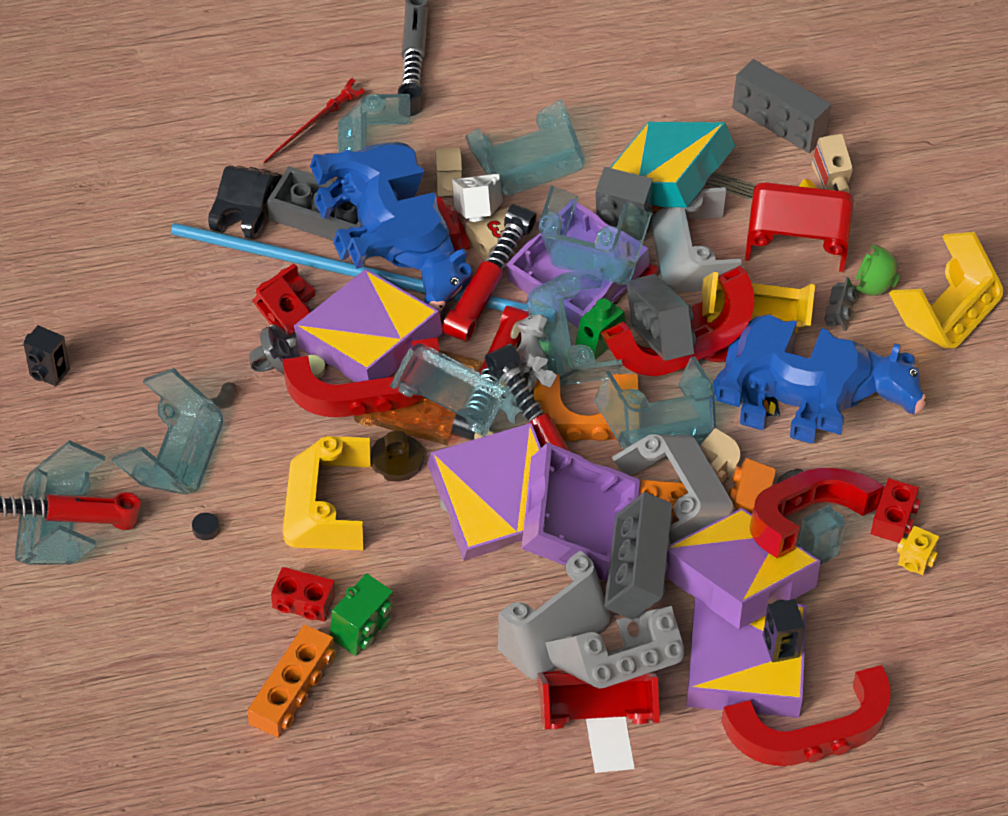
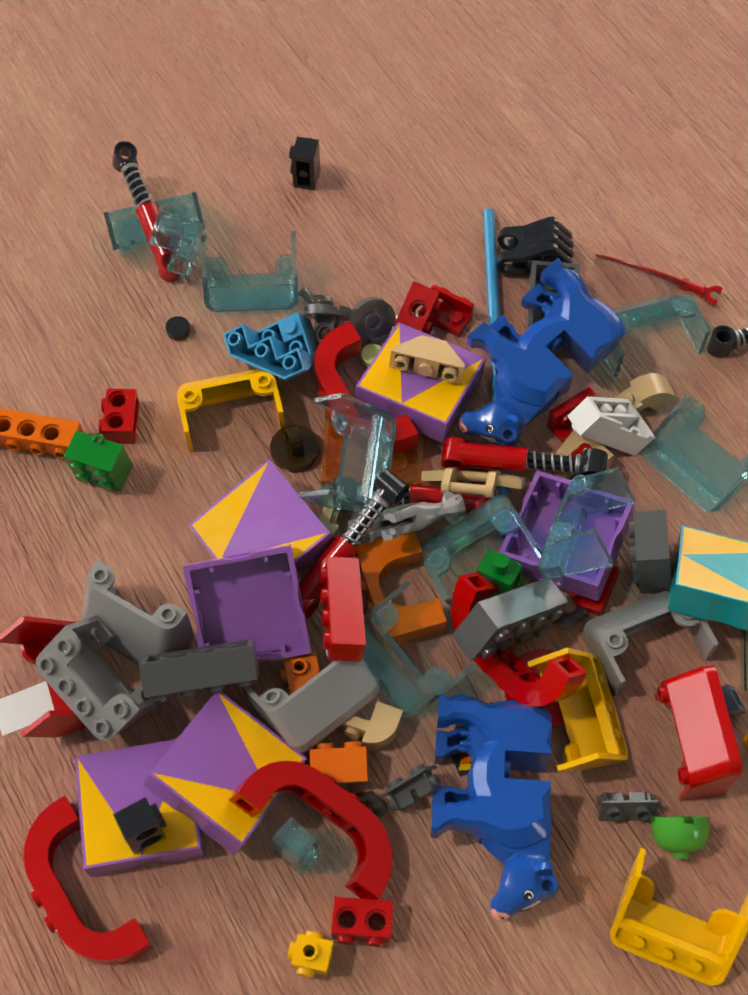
camera: 75 degrees right, 10 degrees up
(118, 478) = (181, 237): none -> clear light blue brick
(258, 386) = (325, 317): none -> dark grey tile
(283, 432) = (279, 349): none -> dark azure brick
(361, 302) = (428, 358): none -> tan slope
(506, 295) = (493, 479): none -> tan bar
(617, 427) = (343, 609): none -> brick
(787, 451) = (420, 780): none -> dark grey hinge

